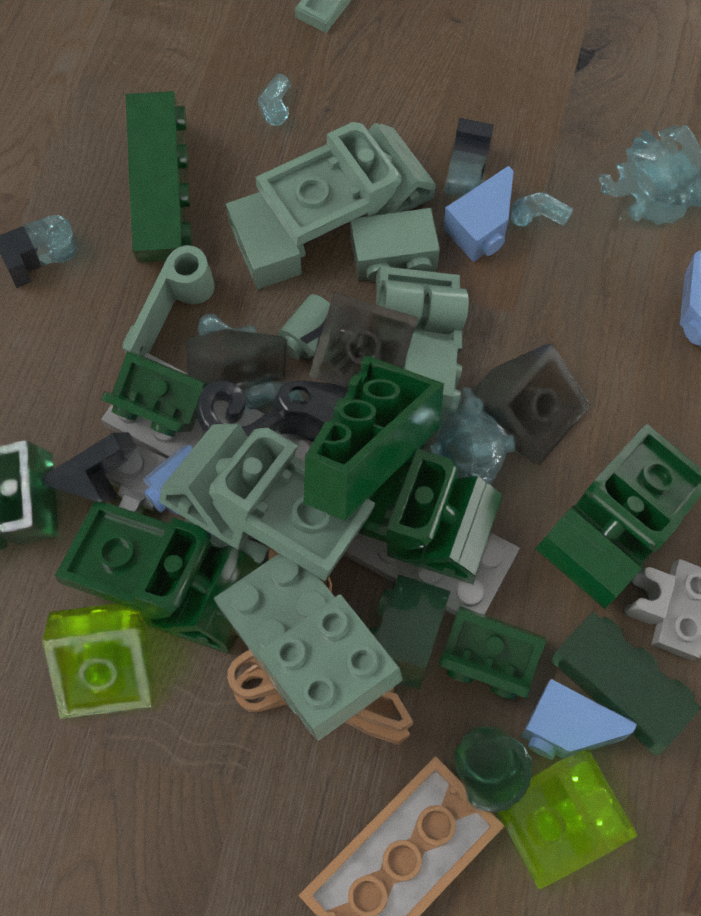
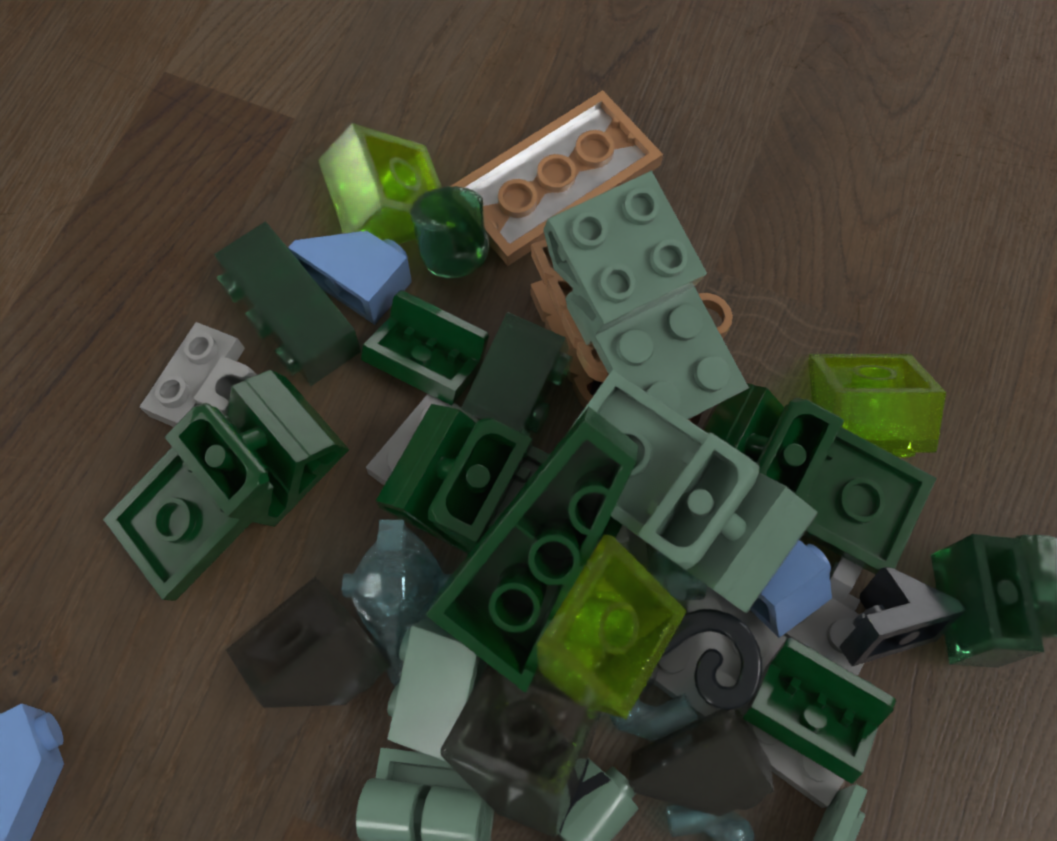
camera: 175 degrees left, 0 degrees up
(309, 386) = (609, 632): none -> clear neon green slope

